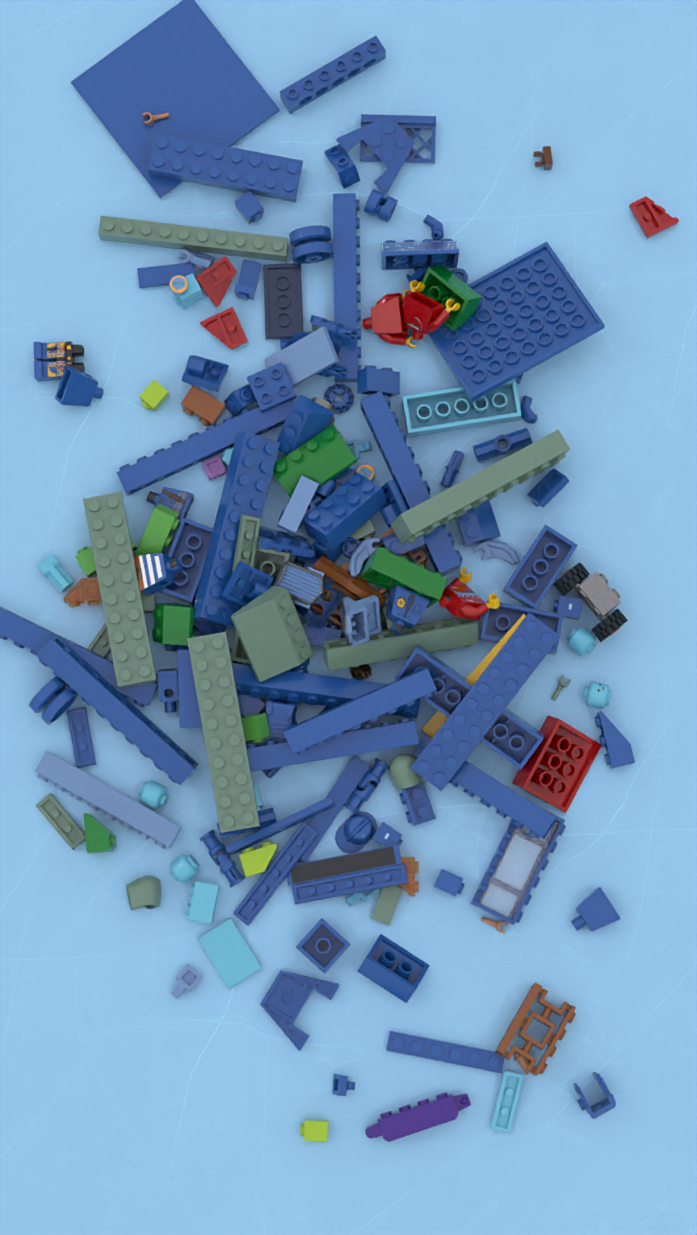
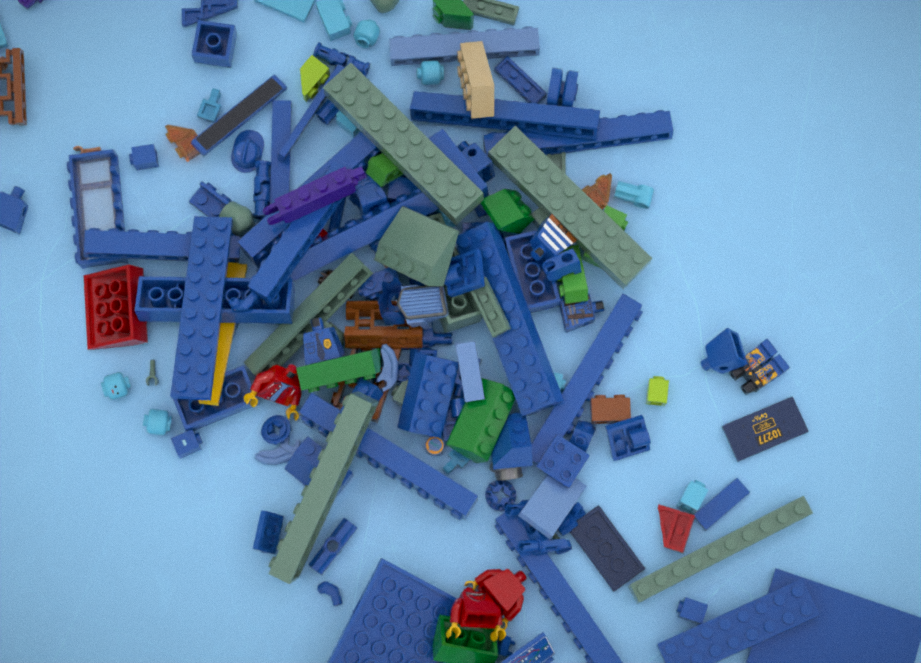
camera: 145 degrees right, 5 degrees down
(88, 310) = (765, 429): none -> dark blue tile
(121, 752) = (476, 79): none -> tan brick
(153, 117) = (831, 635): nougat hand -> none
(162, 542) = (561, 265): none -> blue leg
(178, 285) = (701, 490): medium blue tile -> none
(199, 259) = (703, 535): medium blue plate -> none
(214, 467) = (565, 366): medium lavender tile -> none
(226, 328) = (637, 491): red wing -> none
(247, 280) = (648, 544): blue bracket -> none
(276, 873) = (290, 76): blue tile -> none
(283, 541) = (448, 336): blue wing -> none
(311, 244) = (613, 608): blue wheel -> none
(330, 728) = (314, 195): none -> dark purple hinge
(350, 883) = (222, 103): blue tile -> none
(360, 619) = (353, 308): medium blue piece -> none
(375, 380) = (475, 527): blue brick -> none
(387, 836) = (218, 161): blue brick -> none
(387, 904) = (185, 110): sand green tile -> none
(393, 968) = (146, 64): blue slope -> none
(396, 503) = (386, 426): blue plate -> none
(445, 1052) = (66, 28): blue plate -> none
(450, 680) = (239, 305): none -> blue arm
(452, 469) = (362, 497): blue axle -> none
(453, 409) = (397, 544): medium azure brick -> none
(492, 577) = (281, 423): none -> blue gear
(540, 567) = (231, 459): blue brick -> none
(596, 596) = (165, 466): brick -> none
(616, 745) = (72, 355): blue slope -> none

